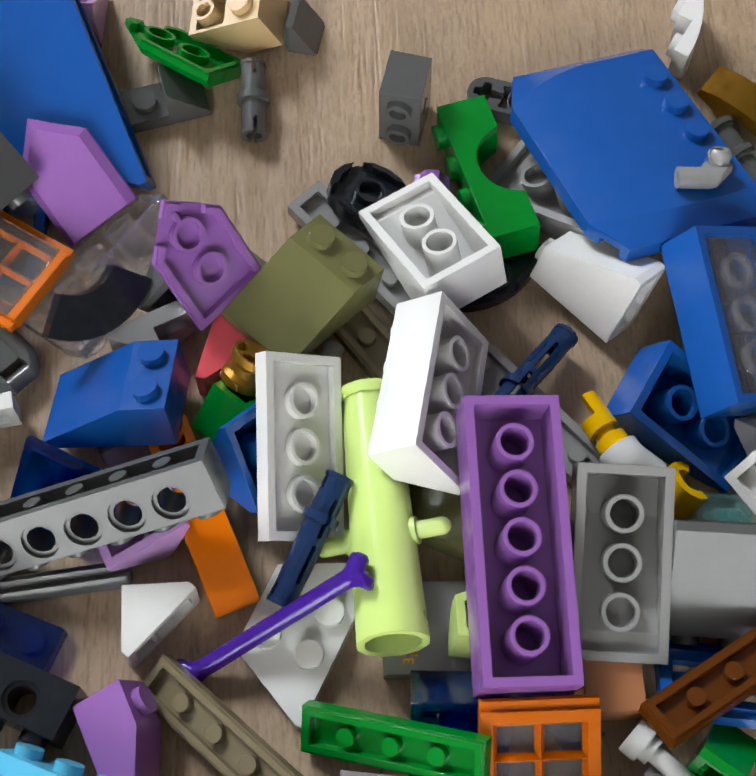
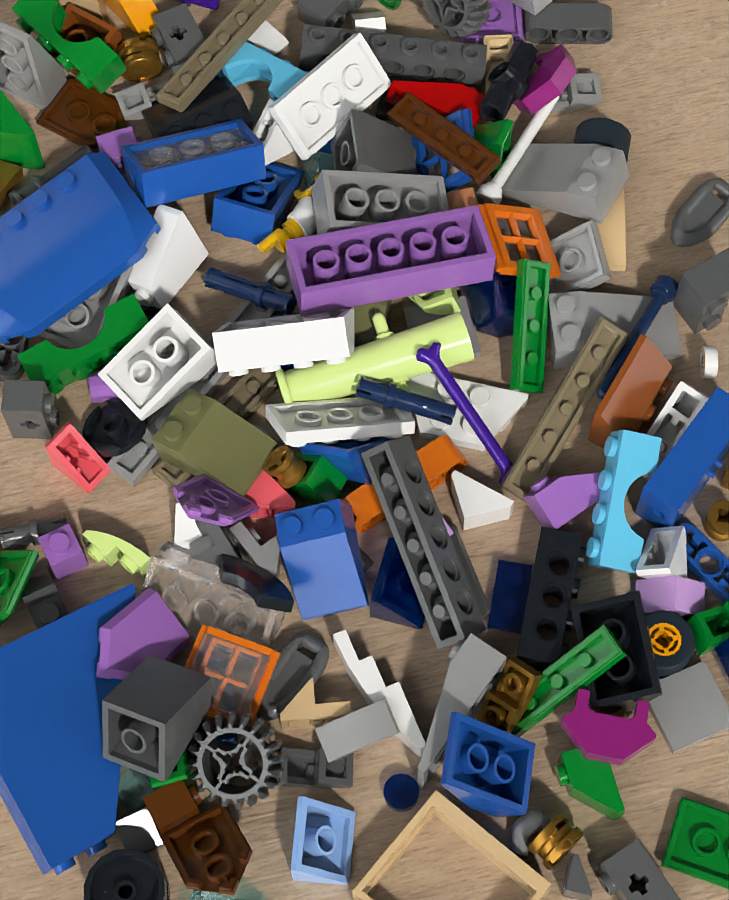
camera: 100 degrees left, 0 degrees up
(209, 169) = (113, 549): none -> yellowish green slope
(215, 121) = (63, 551): none -> medium lavender brick
(338, 142) = (76, 458): none -> coral slope
(710, 173) = (85, 179): light grey arm -> none

